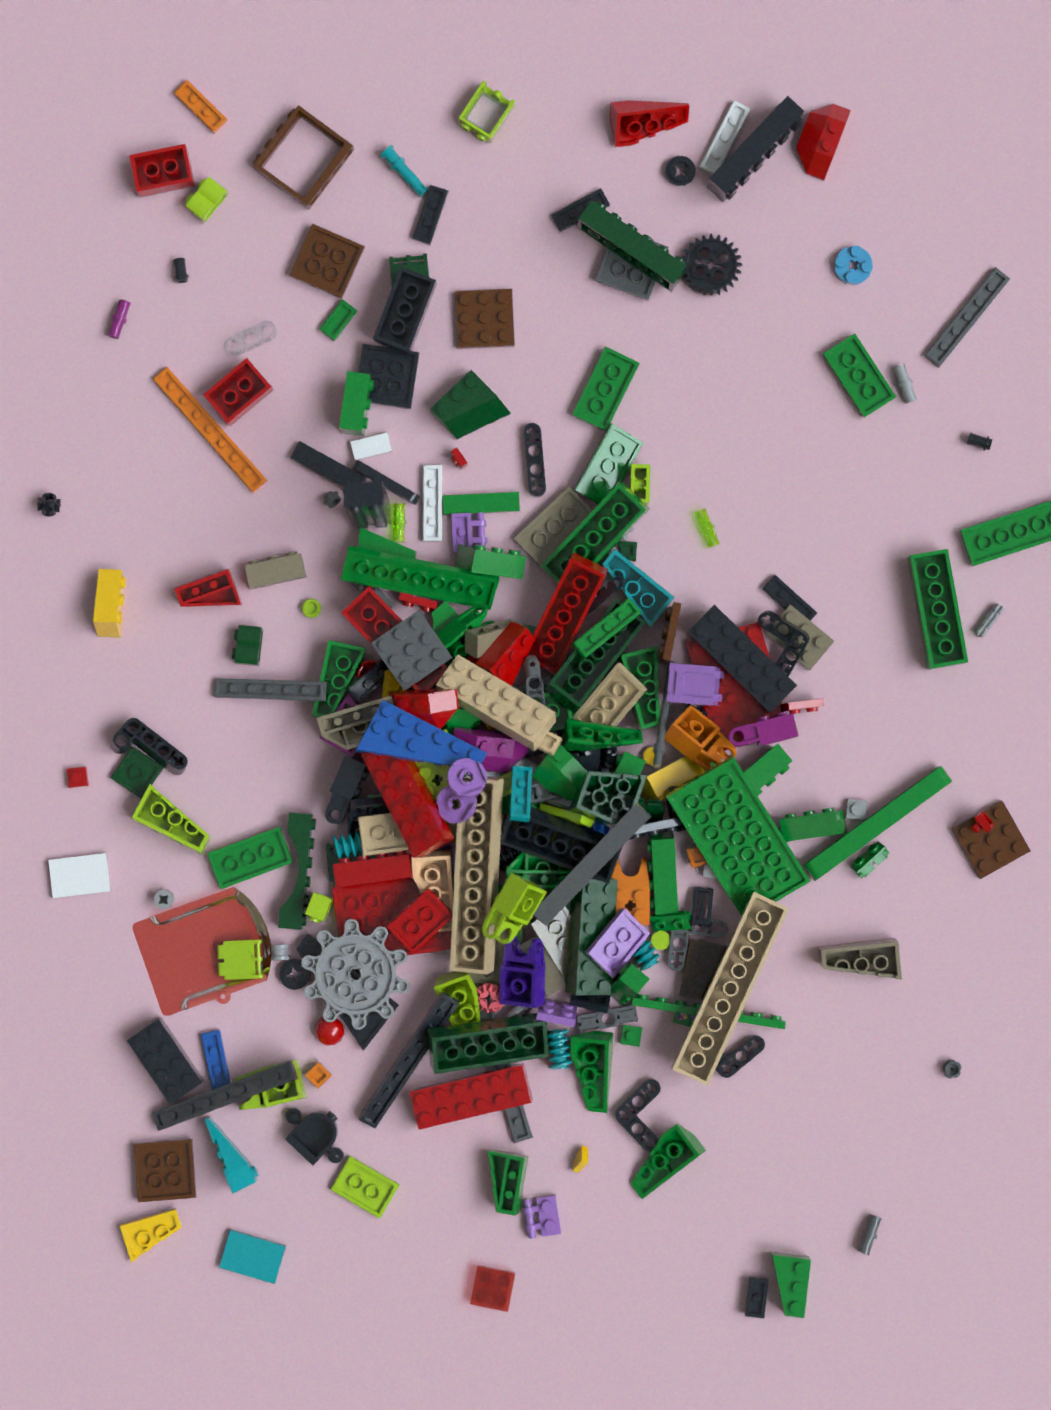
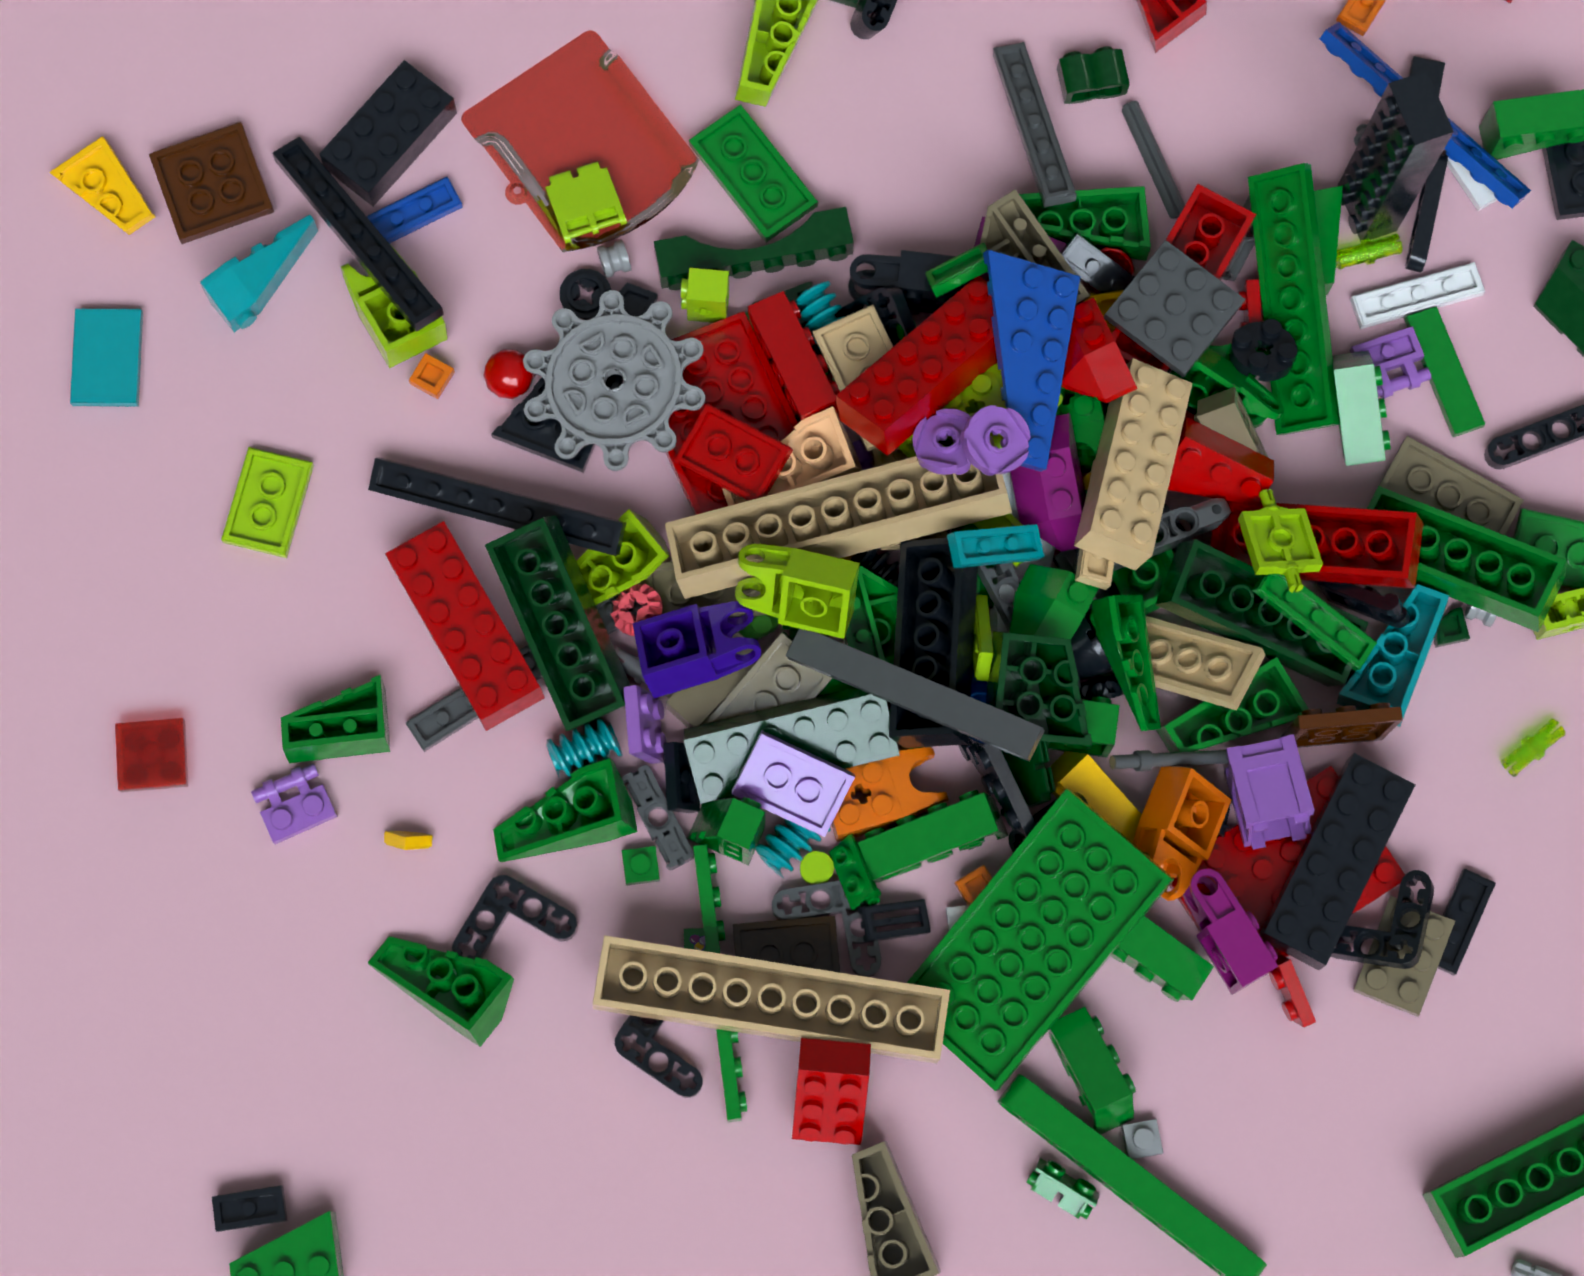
camera: 70 degrees right, 10 degrees down
(166, 897) = (648, 69): light grey wheel -> none
(275, 570) = (1225, 83): dark tan brick -> none
(306, 626) = (1153, 159): none -> dark grey axle
(311, 608) = (1183, 157): lime tile -> none
(314, 1135) = (330, 397): black piece -> none
(329, 465) = (1460, 147): none -> blue plate
(354, 764) = (957, 270): none -> green tile
(437, 599) = (1264, 335): none -> black plate
(458, 459) = (1504, 313): red plate -> none
(563, 636) = (1280, 541): none -> lime plate
(648, 756) = (1119, 776): yellow tile -> none
(787, 970) = (831, 1091): none -> red brick

